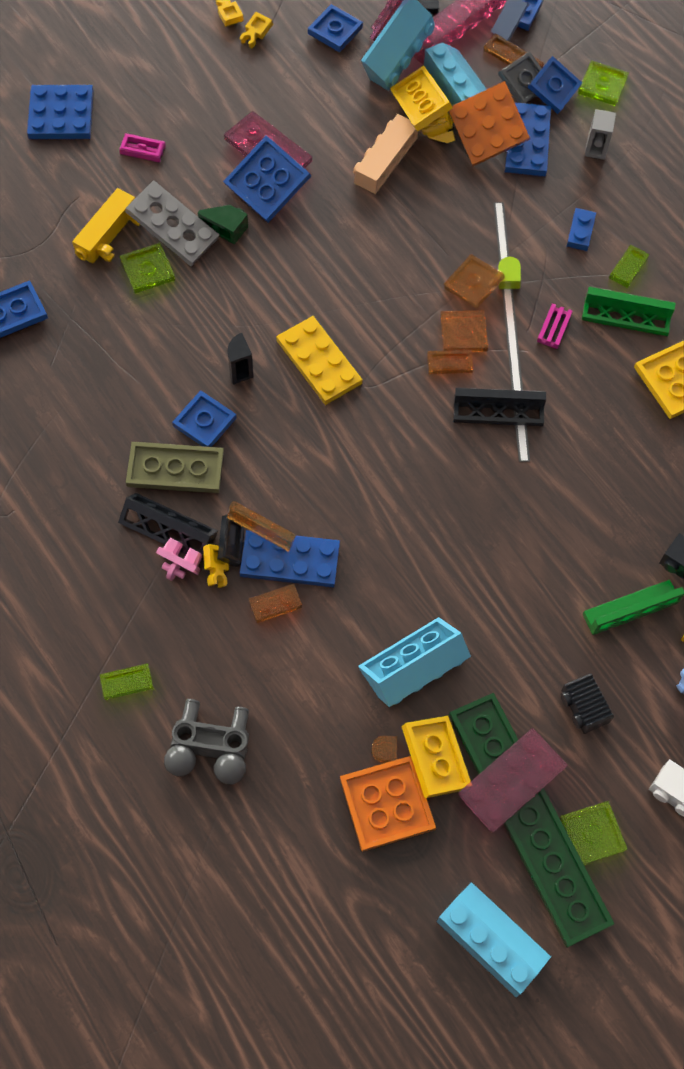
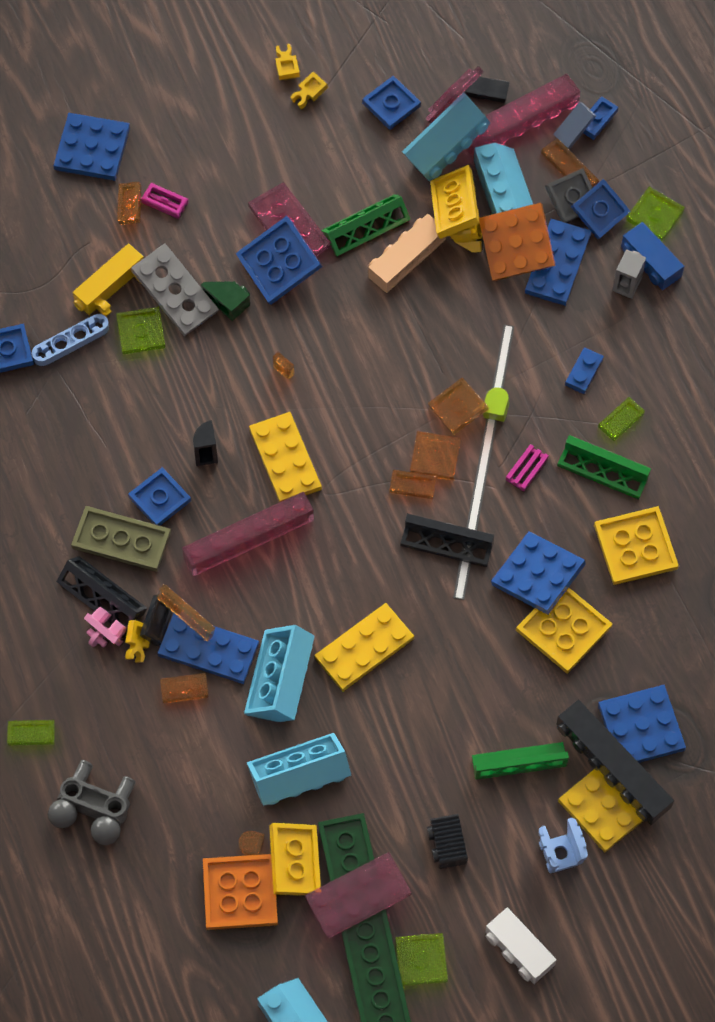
camera: 15 degrees right, 0 degrees up
(81, 290) = (72, 343): none -> light blue beam
(109, 154) = (129, 203): none -> clear orange plate
(295, 274) = (283, 365): none -> clear orange tile
(302, 438) = (248, 533): none -> clear pink brick
(337, 128) = (364, 216): none -> green fence
(369, 569) = (279, 673): none -> medium azure slope
(445, 526) = (364, 647): none -> yellow plate
(596, 420) = (538, 572): none -> blue plate
(628, 123) = (660, 262): none -> blue brick
(636, 468) = (567, 631): none -> yellow plate

